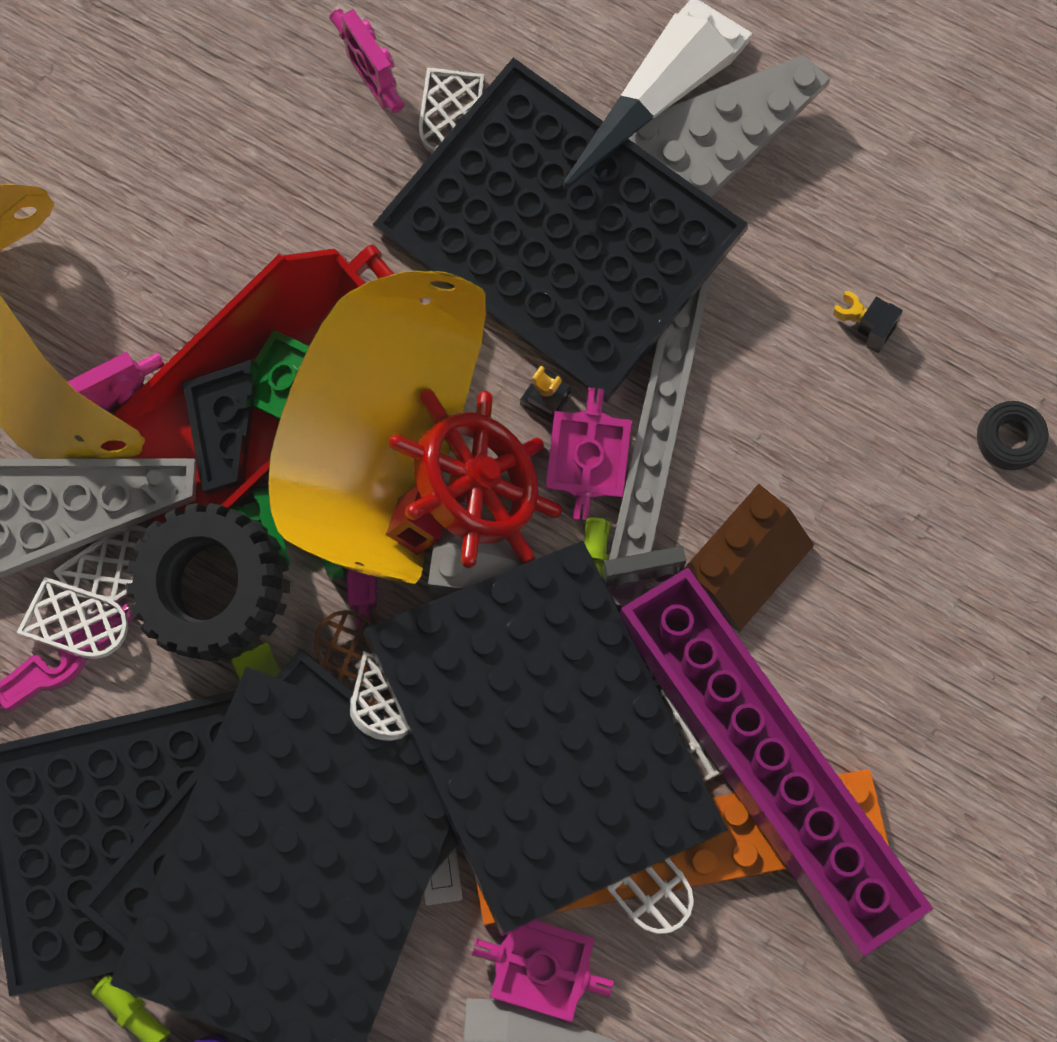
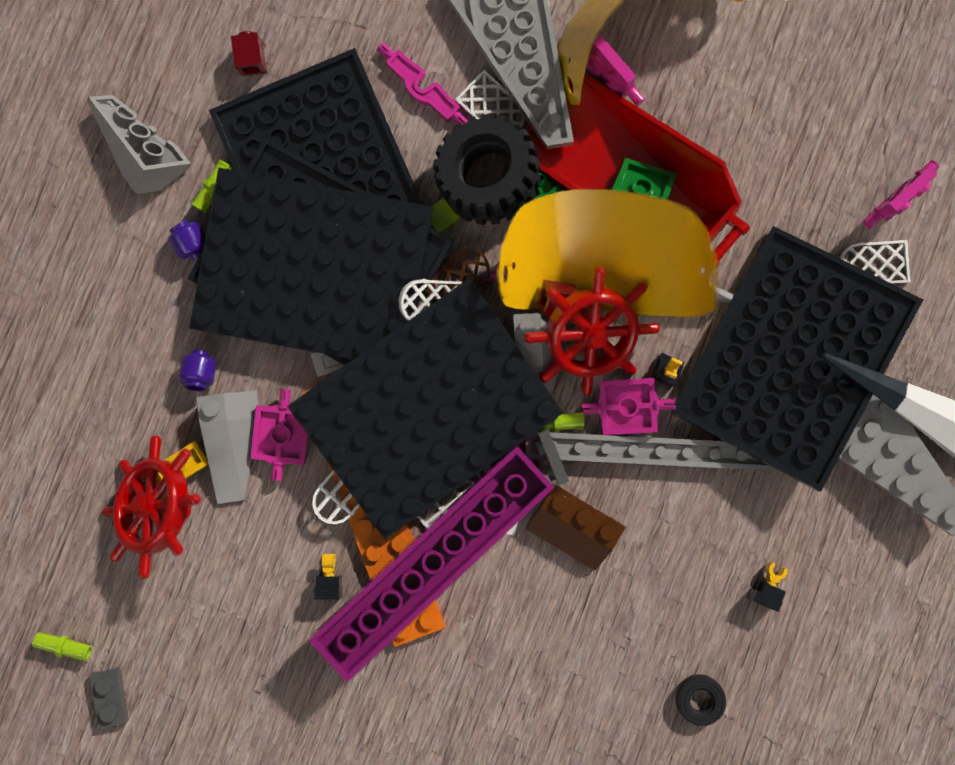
camera: 85 degrees right, 15 degrees up
(24, 629) = (455, 63): white window -> none
(221, 424) = (602, 154): black wing -> none
(784, 931) = (328, 585): none -> black piece

